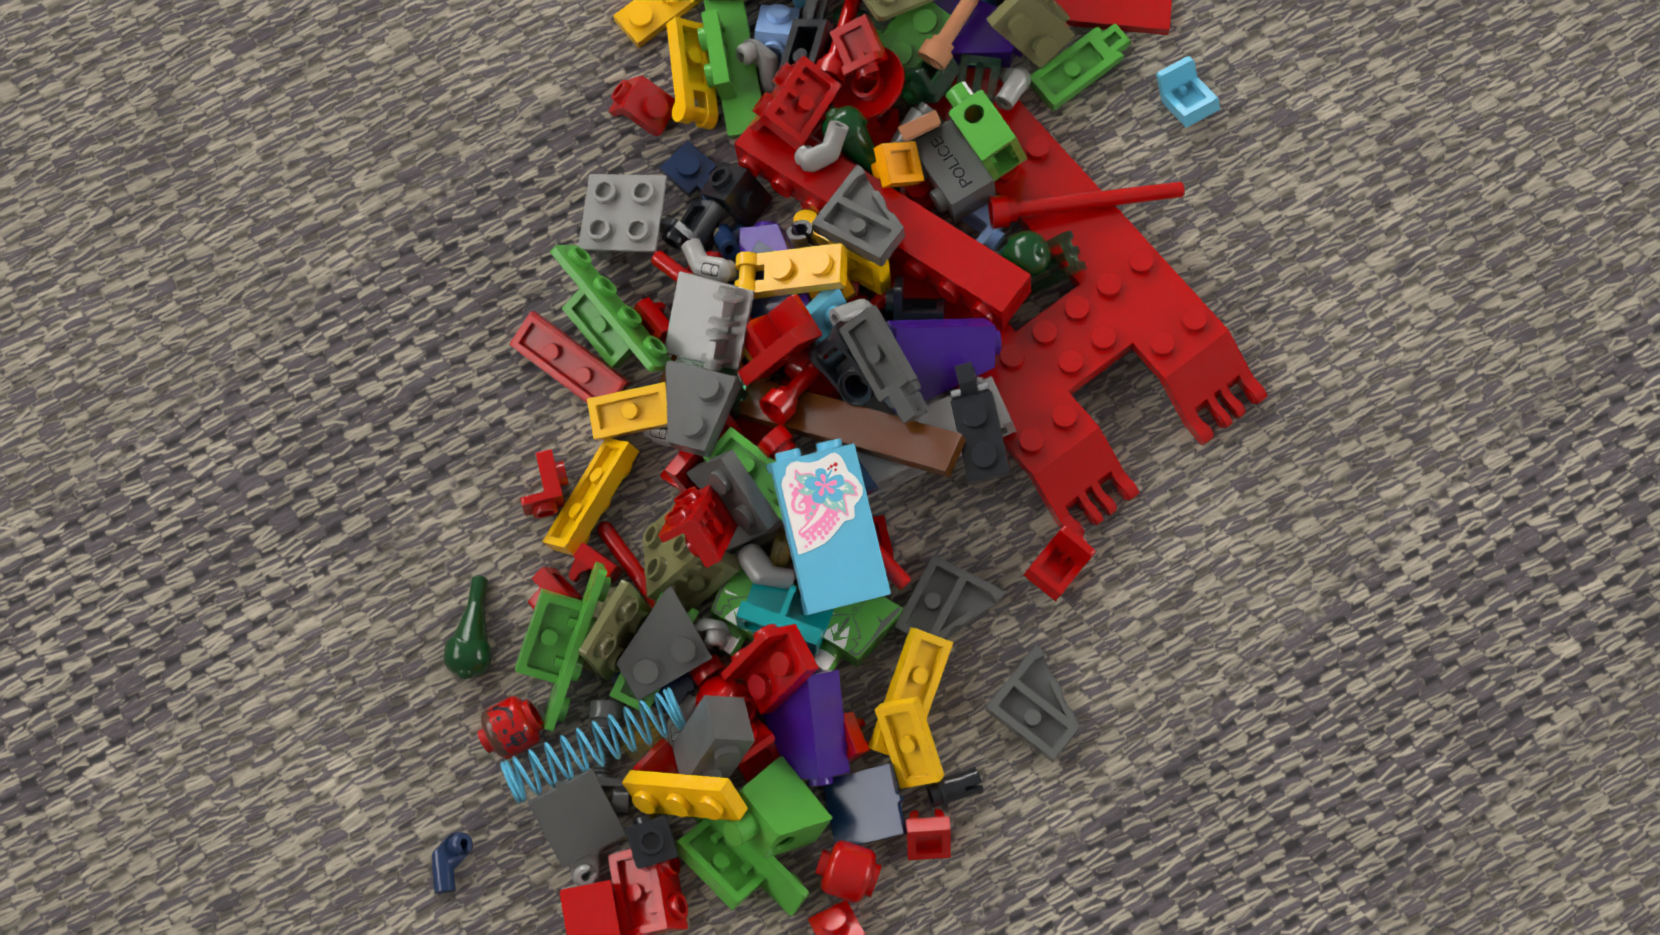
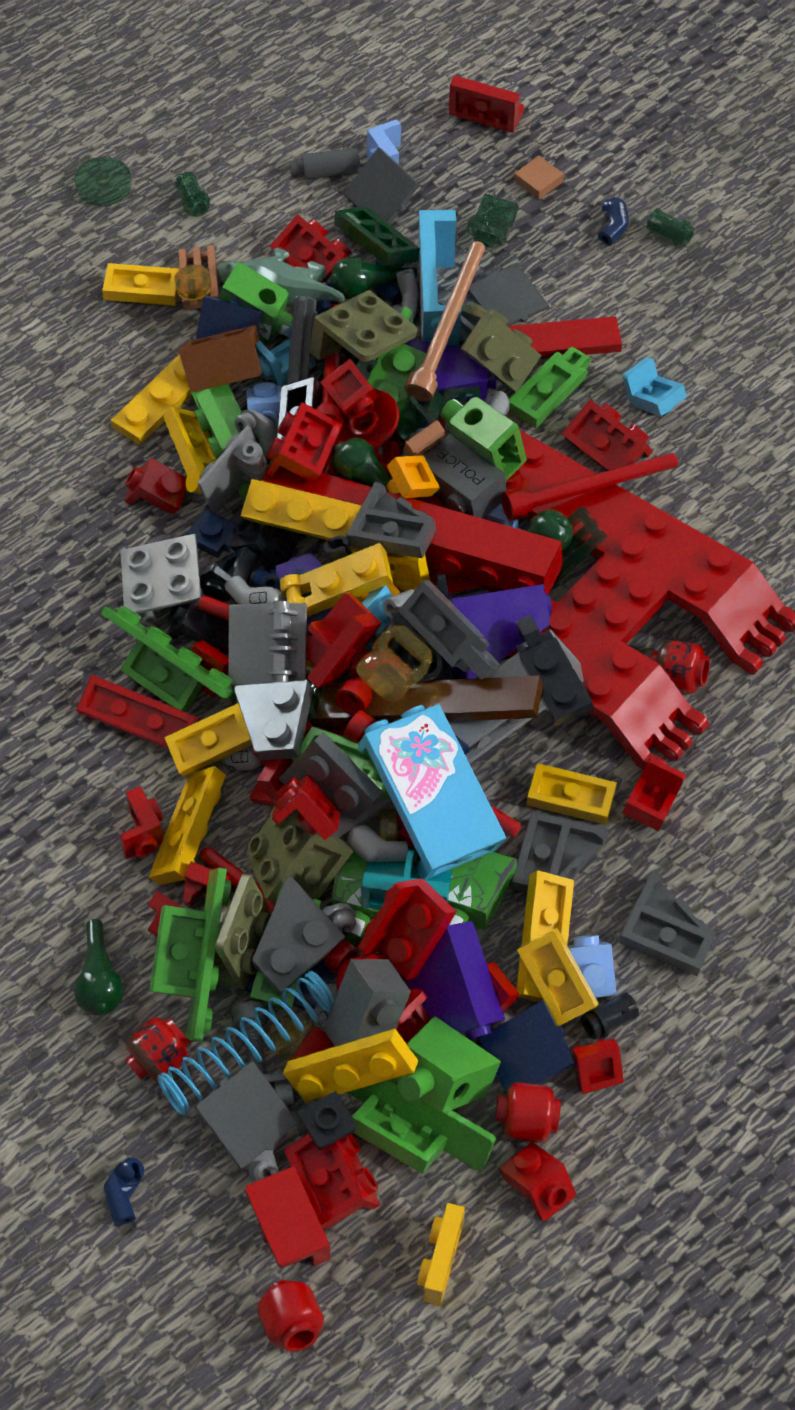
camera: 15 degrees left, 15 degrees down
(647, 276) = (197, 624): none -> black bracket
(730, 101) = (238, 463): none -> light grey hinge
(773, 178) = (298, 510): none -> yellow plate
(812, 389) = (386, 671): none -> clear yellow piece
(825, 153) = (342, 479): light grey arm -> none
(951, 730) = (595, 963): none -> light blue bracket
(979, 541) = (571, 793): none -> yellow plate
(1122, 142) = (605, 438): none -> red bracket
(1126, 424) = (683, 664): none -> red head

